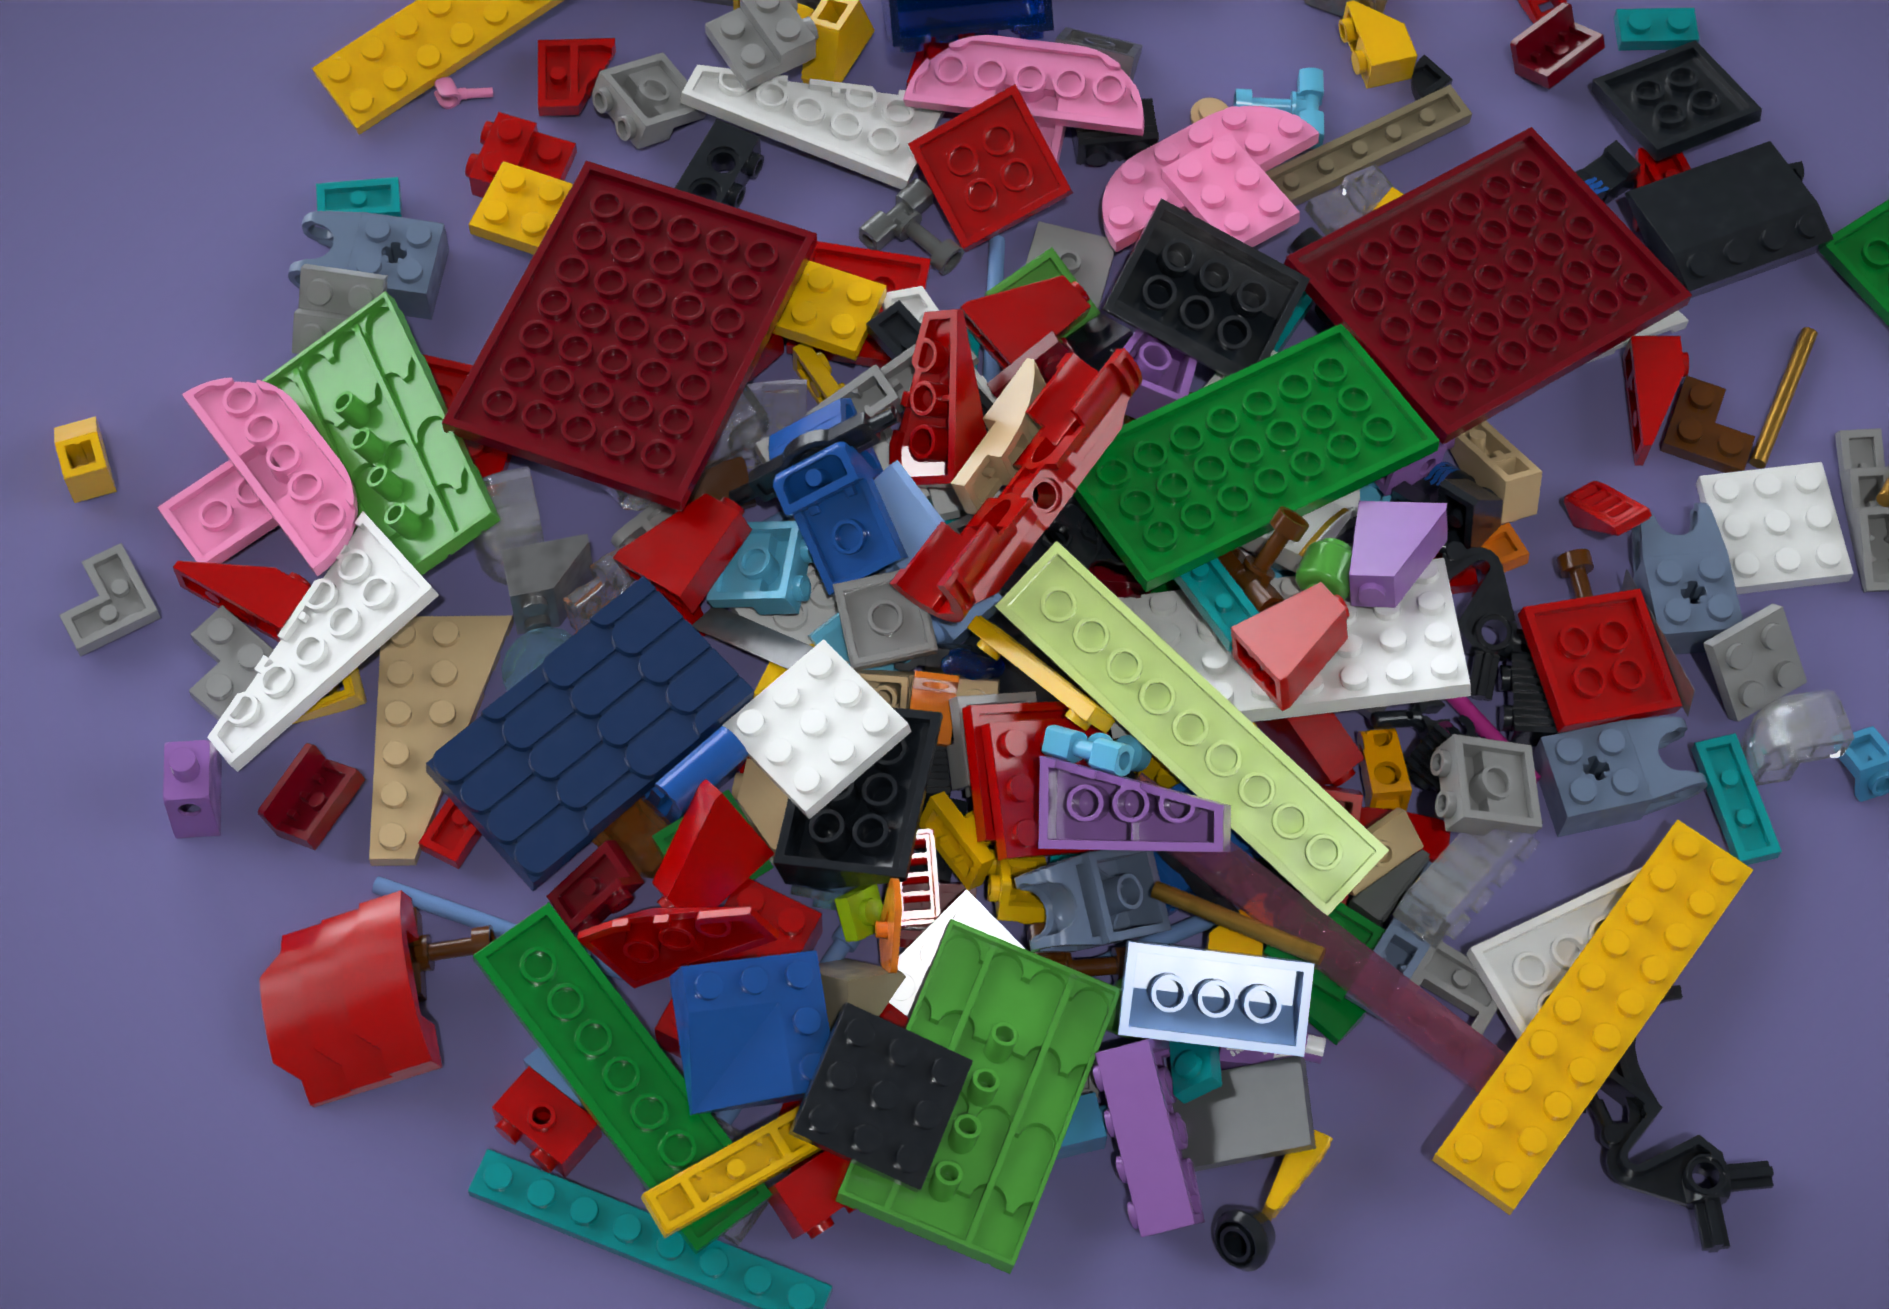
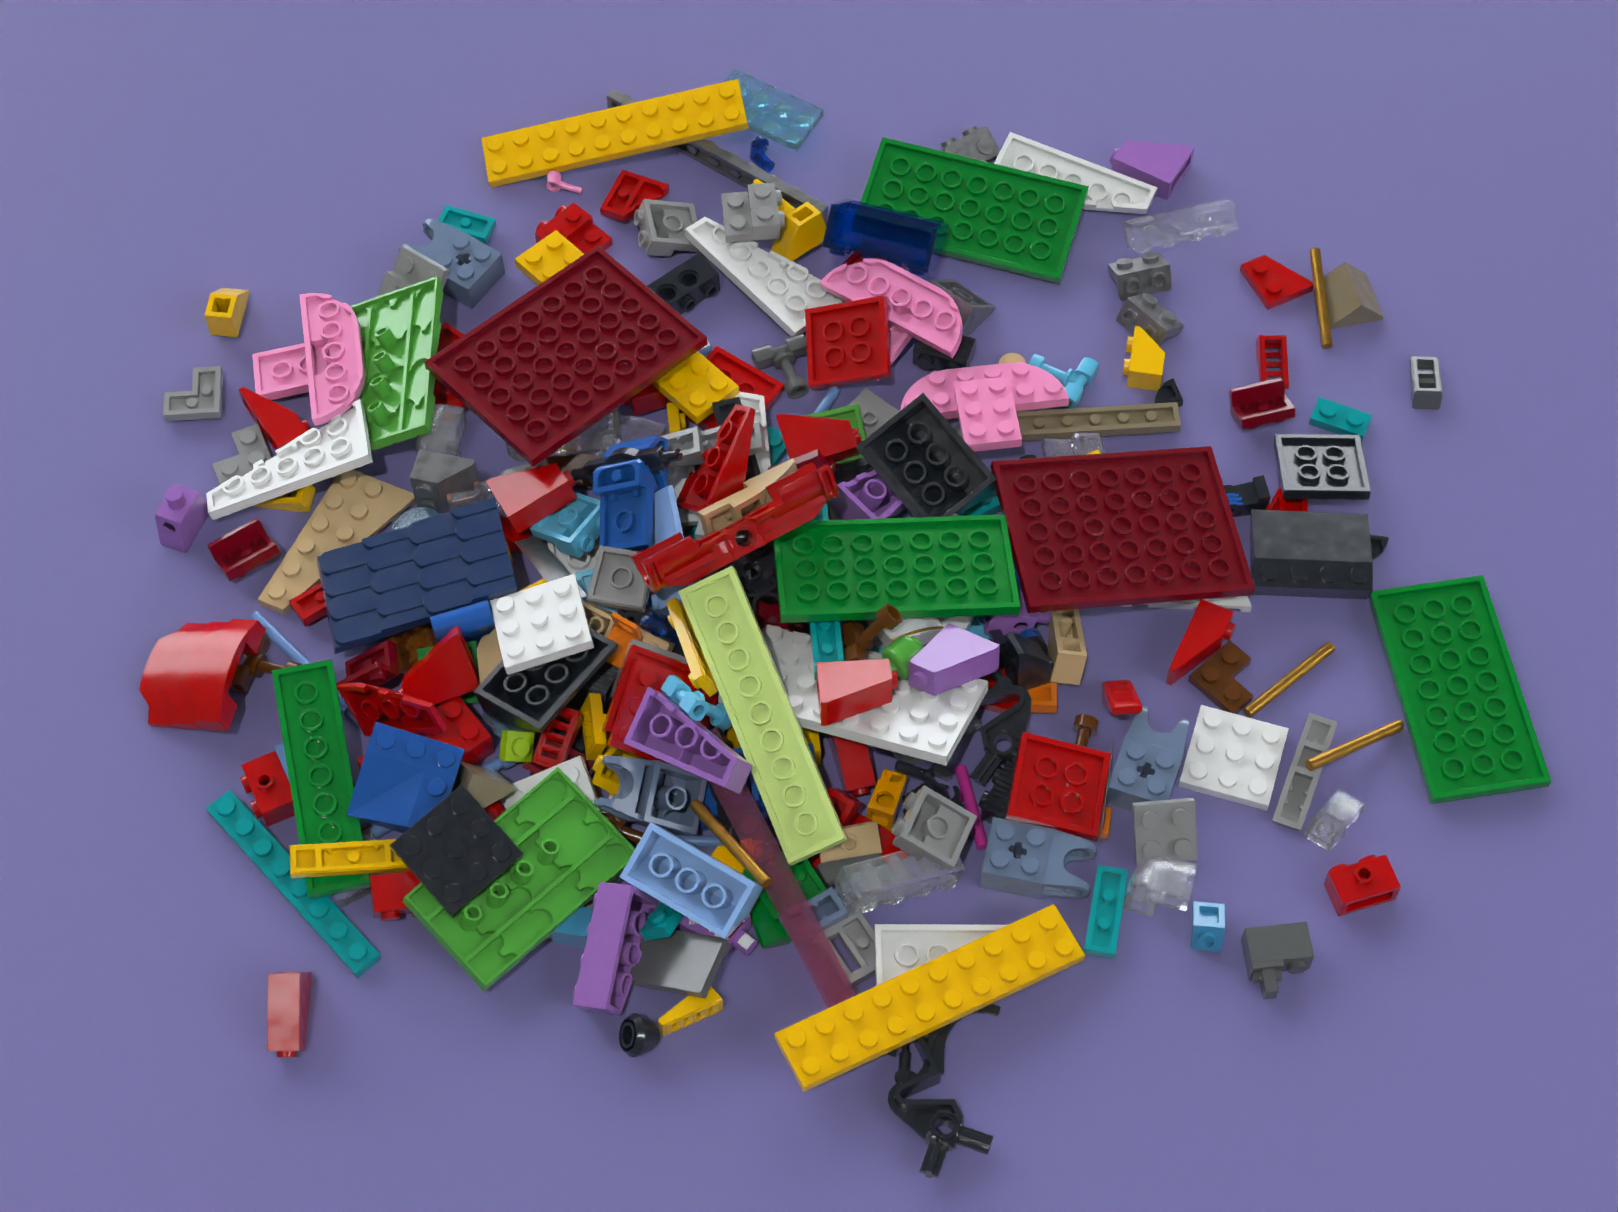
camera: 30 degrees right, 5 degrees down
(889, 927) = (519, 756): orange piece -> none

